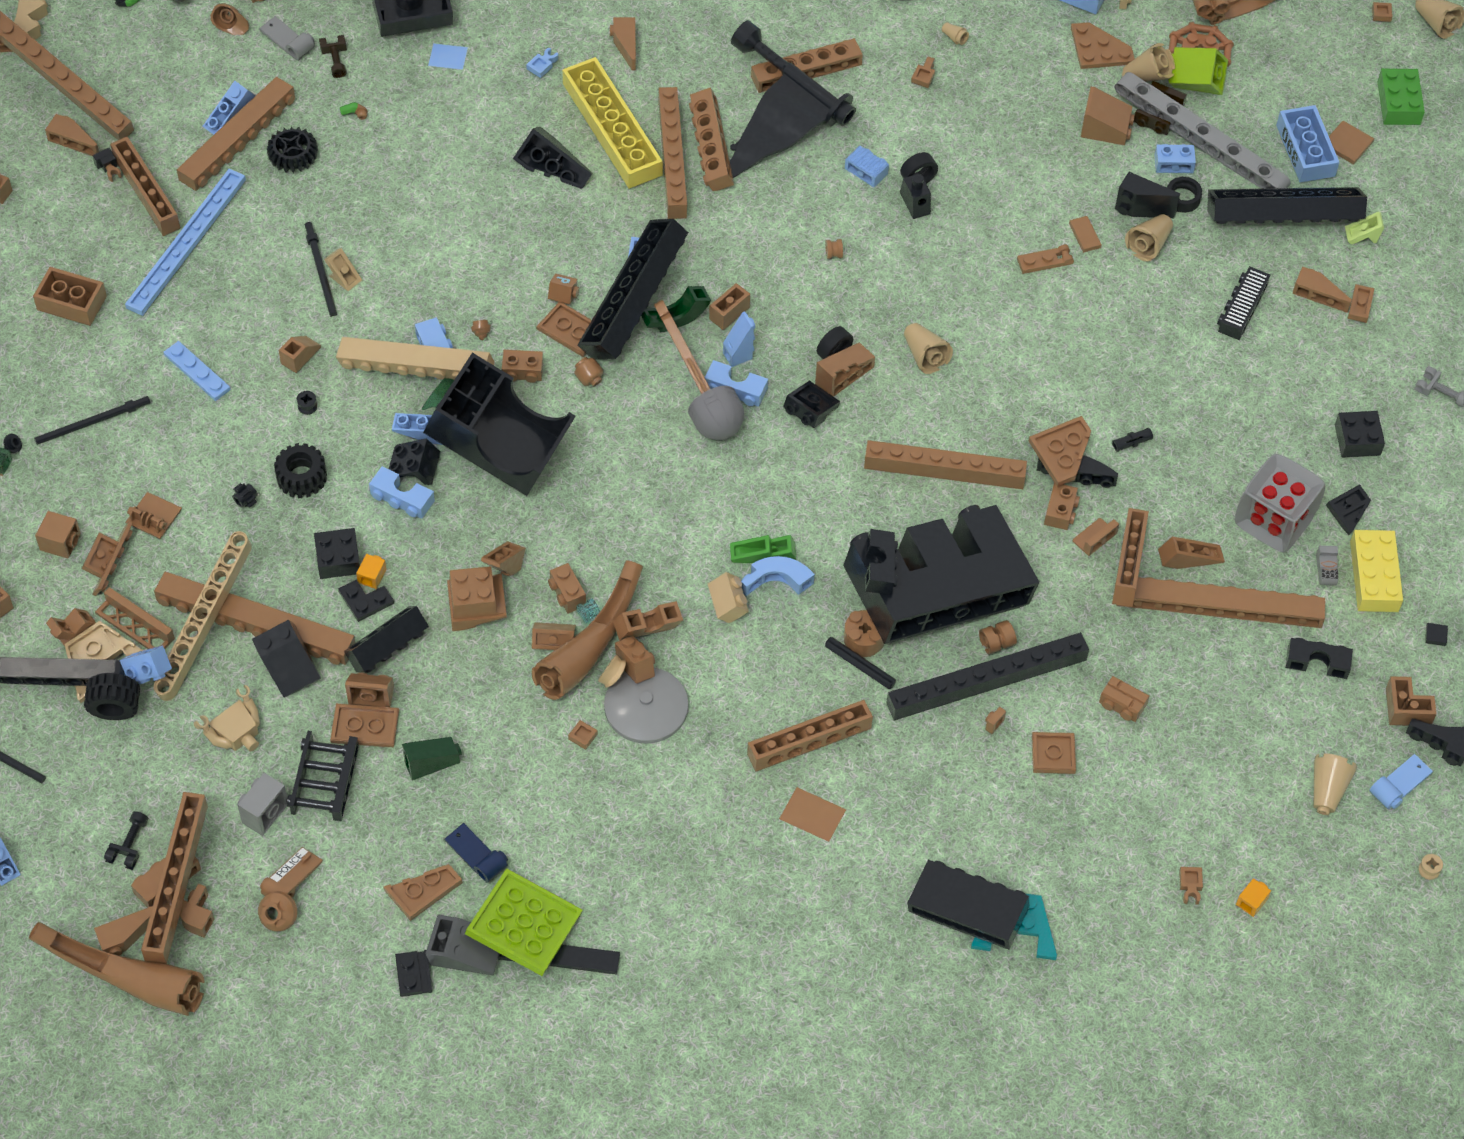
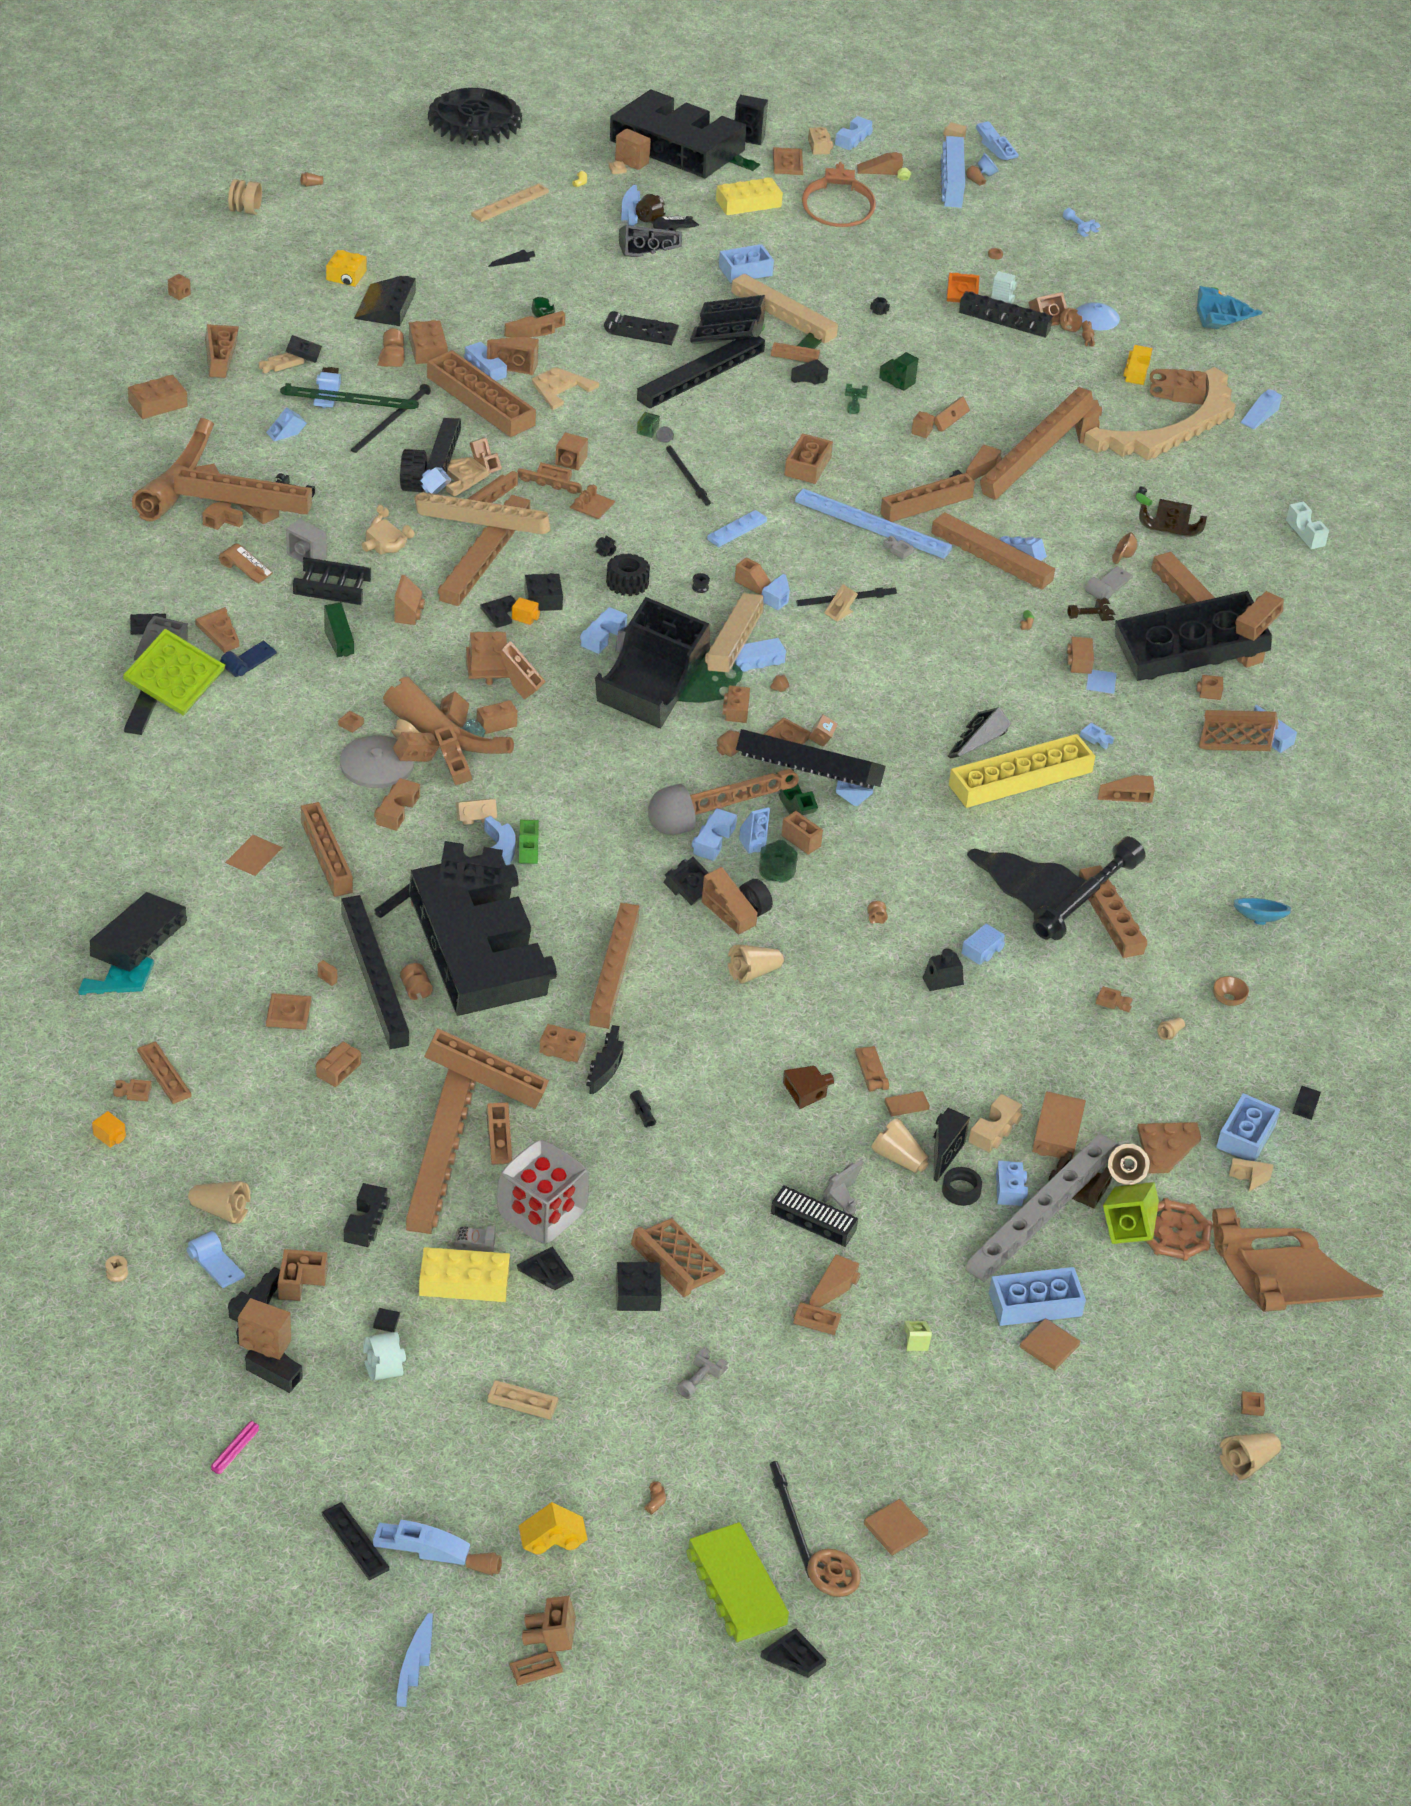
camera: 90 degrees right, 15 degrees down
(232, 216) = (899, 548): none -> light grey plate
(285, 907) = (212, 550): medium nougat piece -> none
(286, 658) = (443, 555): black slope -> none
(293, 154) = (977, 581): black gear -> none
(323, 328) = (776, 593): none -> light blue slope
(369, 723) = (377, 607): medium nougat tile -> none
(386, 639) = (452, 610): black brick -> none
(418, 65) = (1080, 655): none -> medium nougat brick
(672, 153) = (989, 809): medium nougat brick -> none
(711, 140) = (1007, 836): medium nougat brick -> none
(737, 683) = (391, 811): none -> medium nougat arch
(774, 328) = (778, 861): none -> clear green brick
(918, 161) = (976, 974): black tyre -> none
(1062, 449) = (619, 1036): medium nougat plate -> none
(1081, 307) = (806, 1084): none -> reddish brown torso
(1091, 157) = (990, 1134): none -> tan arch
(1096, 535) = (528, 1063): medium nougat panel -> none
(1157, 861) = (164, 1072): none -> medium nougat tile
(1210, 277) = (838, 1187): none -> light grey plate
(1287, 204) = (944, 1261): black brick -> none
(1324, 416) = (675, 1274): none -> medium nougat fence
(1400, 96) = (1117, 1396): bright green brick -> none

